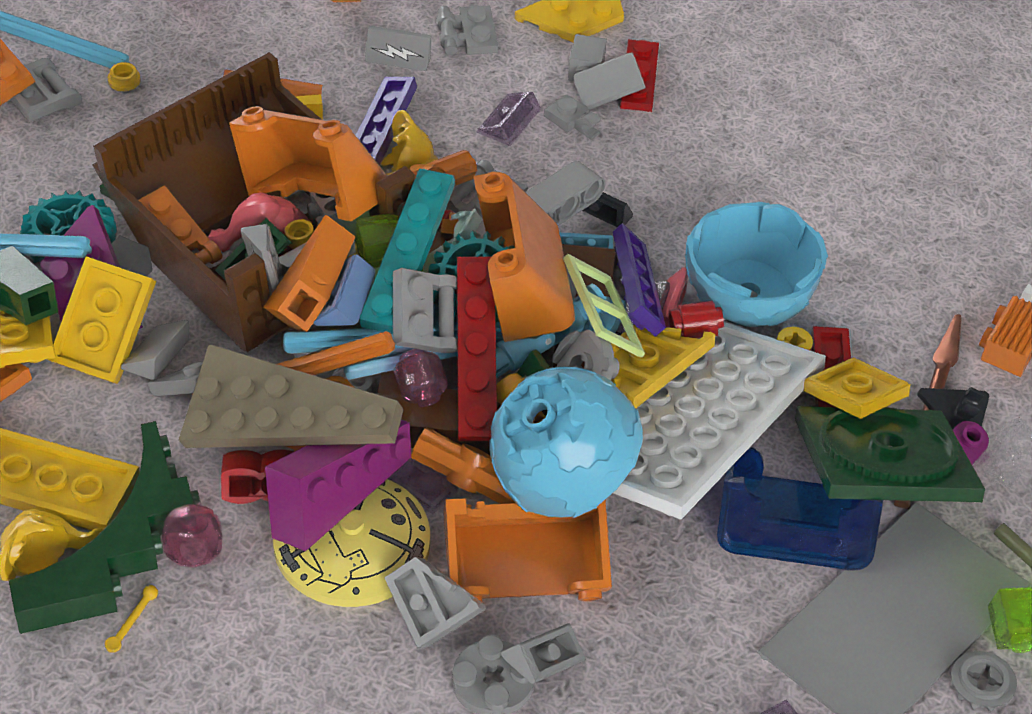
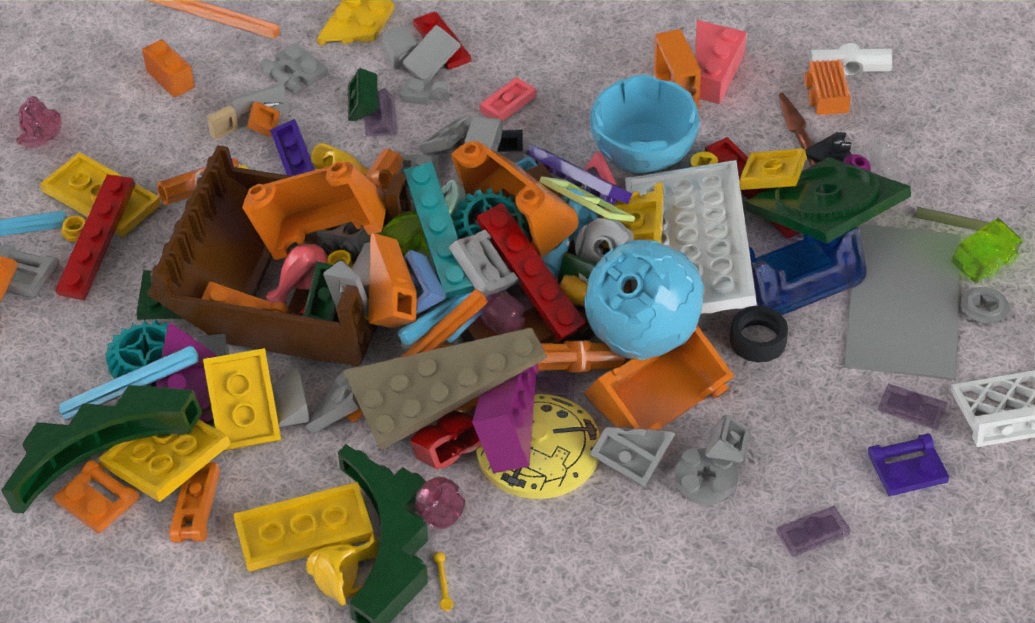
camera: 30 degrees left, 0 degrees up
(128, 93) = (95, 237): none -> red plate
(173, 54) = (79, 183): none -> yellow plate
(346, 46) = (222, 122): none -> tan plate
(388, 61) = (263, 118): none -> orange plate
(508, 88) = (362, 94): none -> dark green slope
(537, 173) = (447, 136): none -> light grey wing
(649, 169) = (508, 99): none -> coral plate
(689, 583) = (753, 350): none -> black tyre
(696, 318) = (639, 178): red brick -> none
(850, 227) = (676, 62): none -> orange window
(910, 240) = (718, 56): none -> coral wedge

